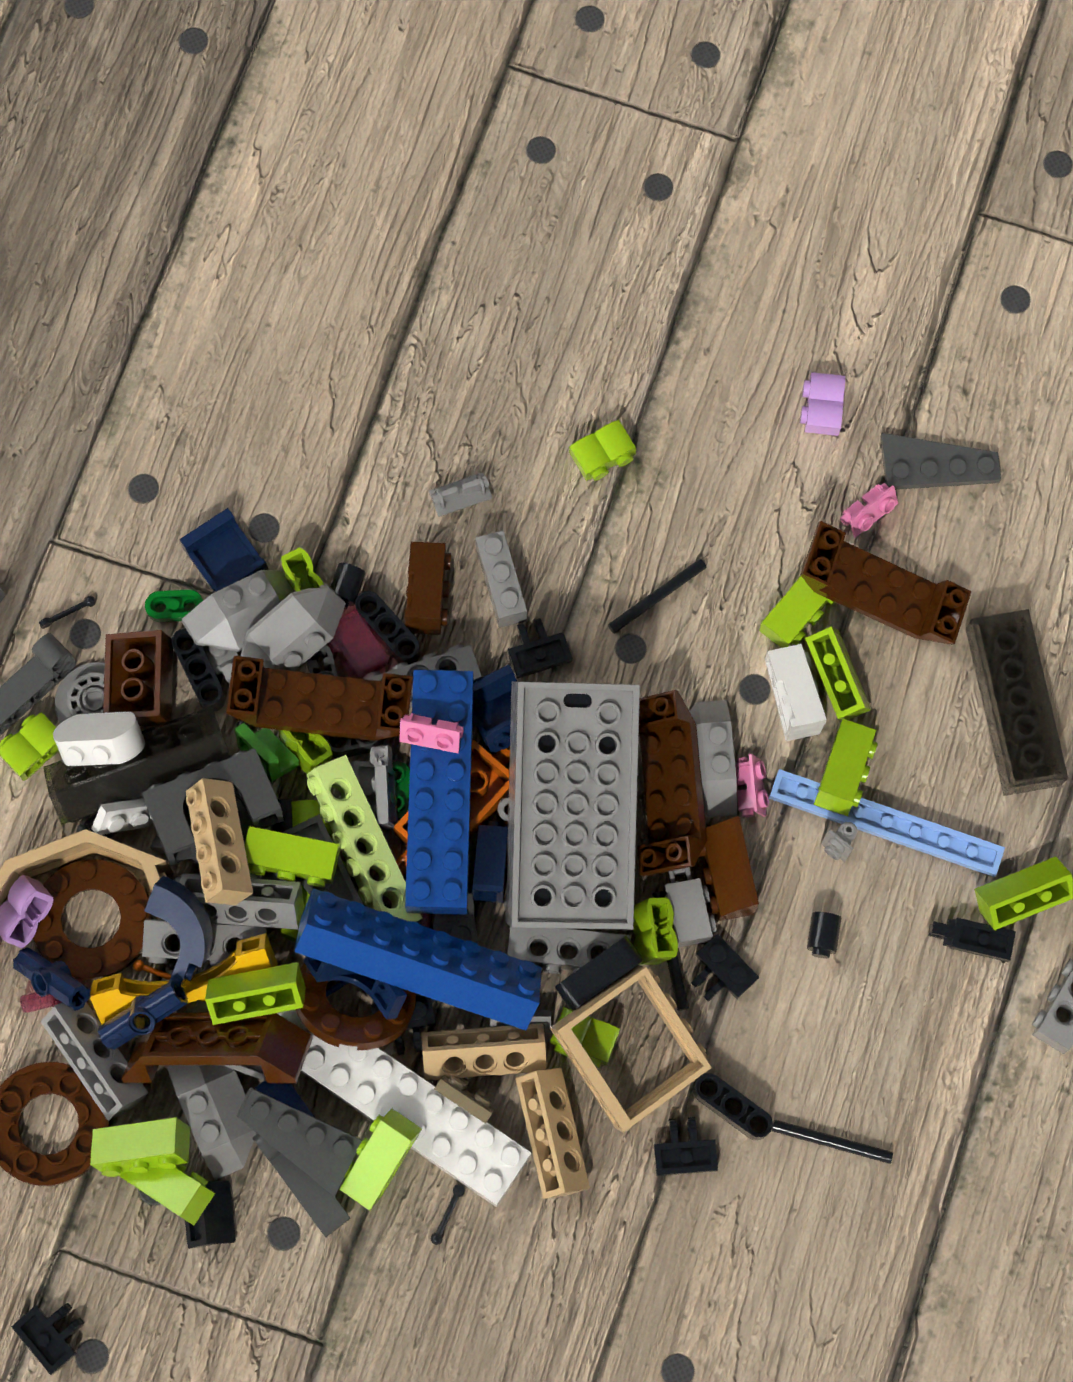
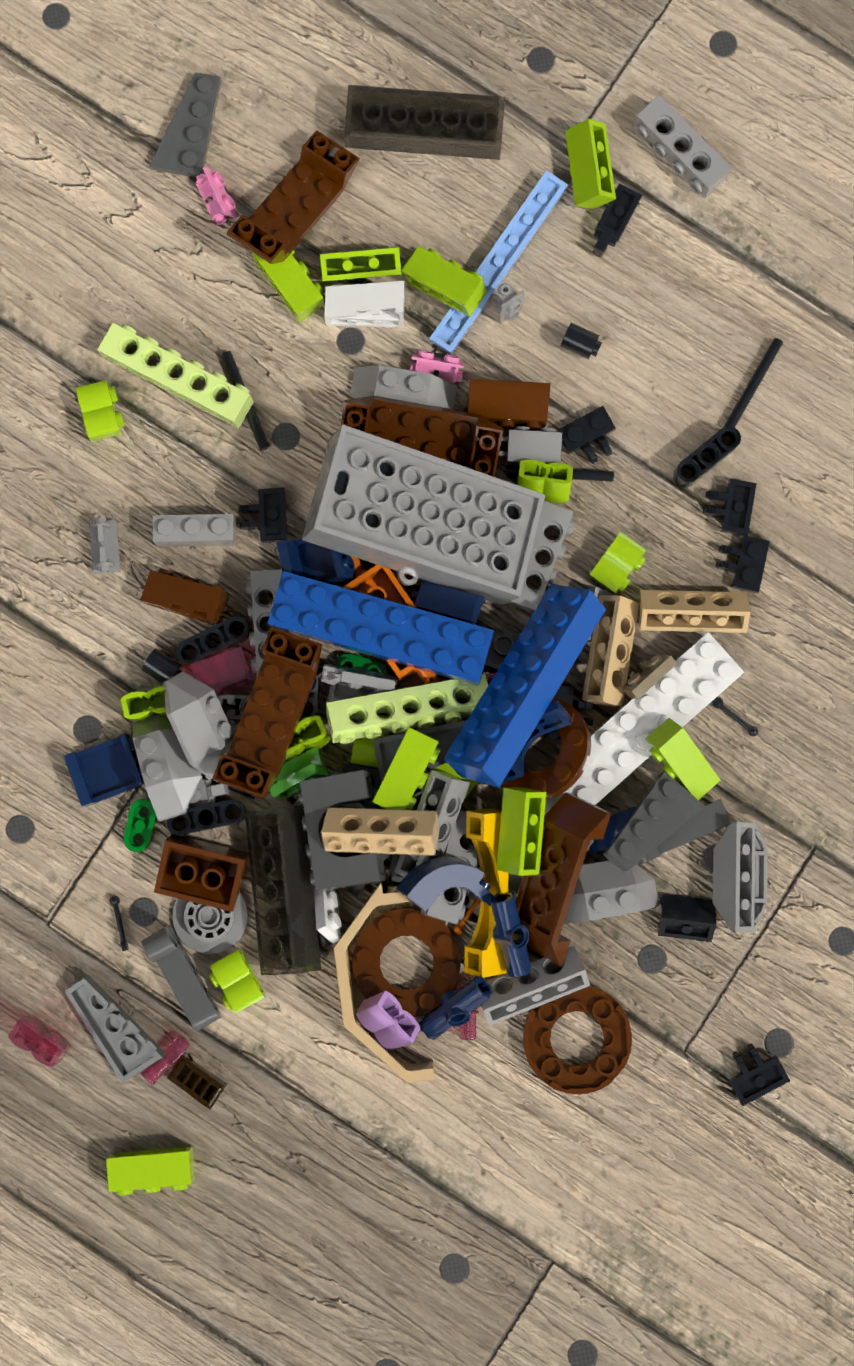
camera: 75 degrees left, 10 degrees up
(99, 738) = (251, 918): white brick -> none
(140, 1146) = (625, 962): lime brick -> none
(174, 1190) = (656, 947): lime brick -> none
(266, 1262) = (740, 876): none -> light grey wedge
(420, 731) = (328, 631): bright pink hinge -> none
(599, 973) = (572, 535): black beam -> none
(625, 1188) = (749, 565): none -> black hinge
(673, 449) = (115, 348): none -> yellowish green brick
(678, 1027) = (679, 506): tan window -> none
(824, 403) = (109, 207): lavender brick -> none

